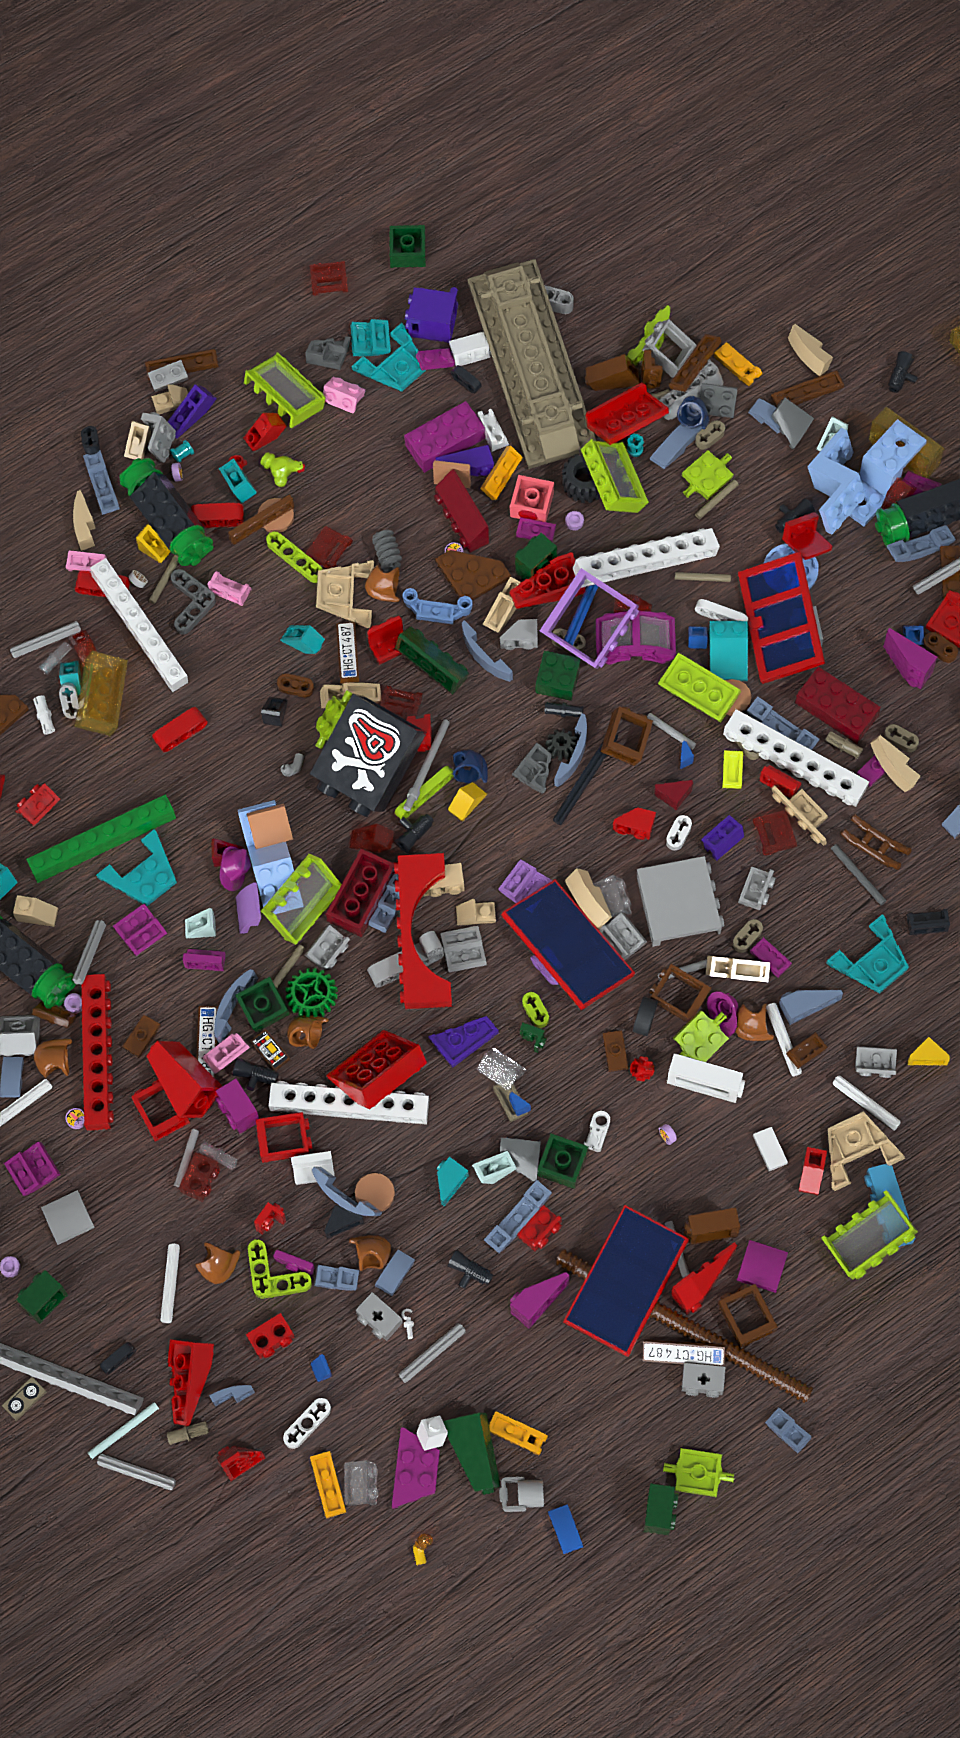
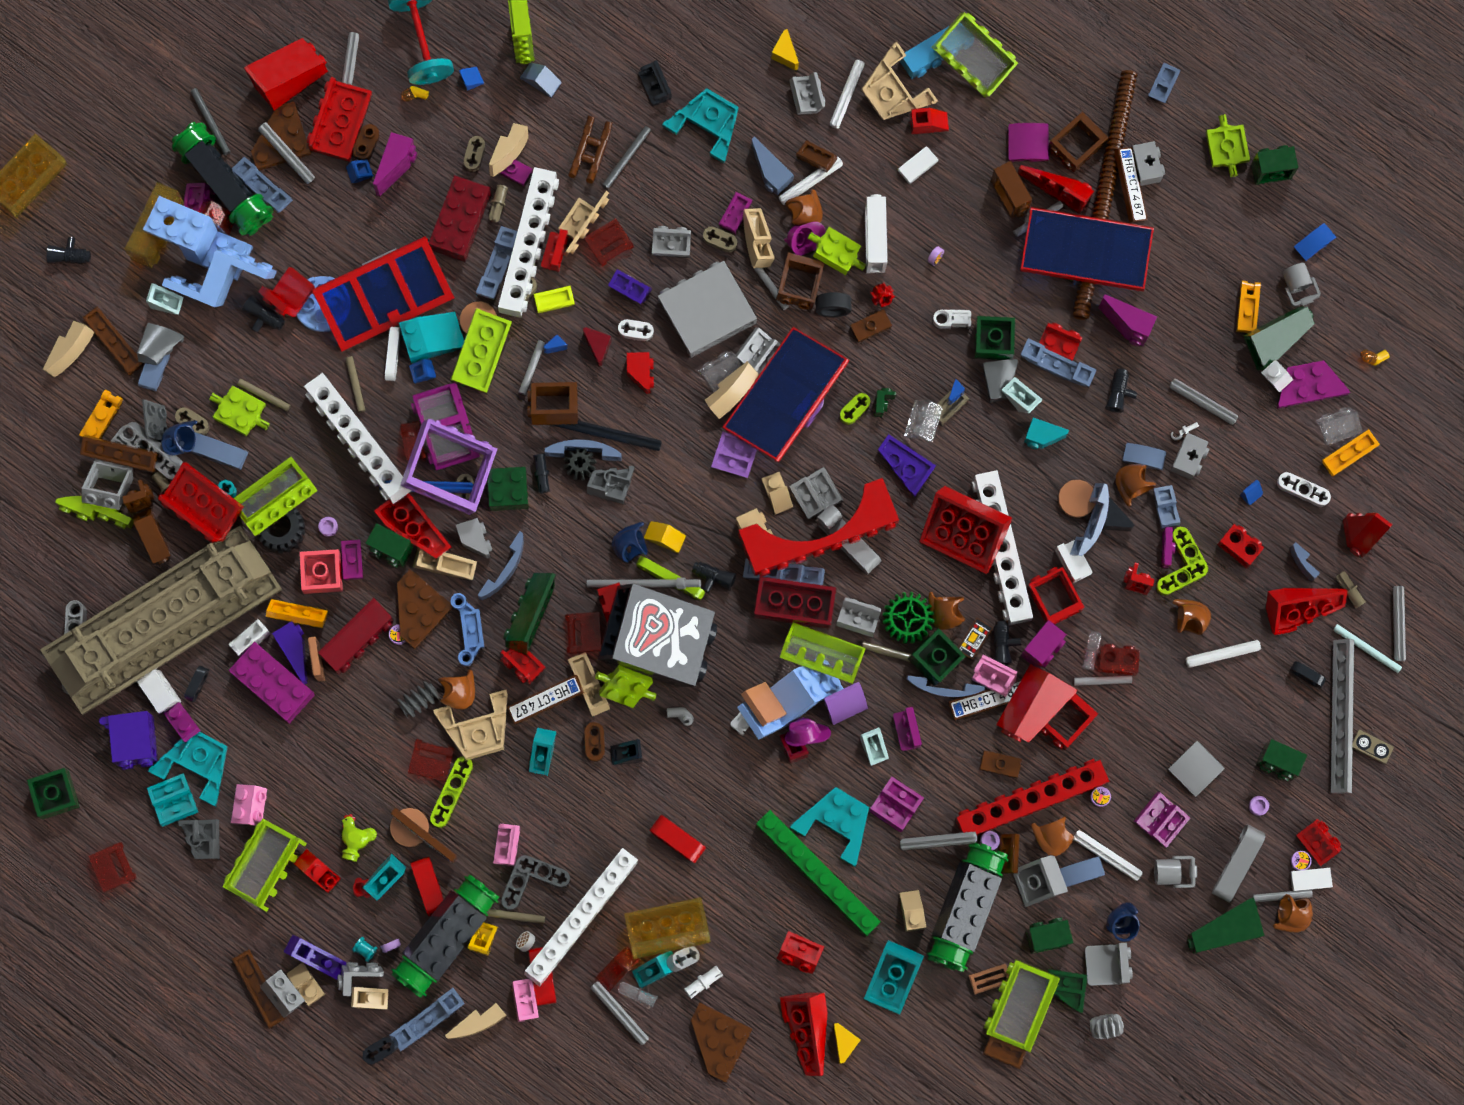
camera: 115 degrees left, 10 degrees up
(372, 838) = (734, 613): clear red slope -> none

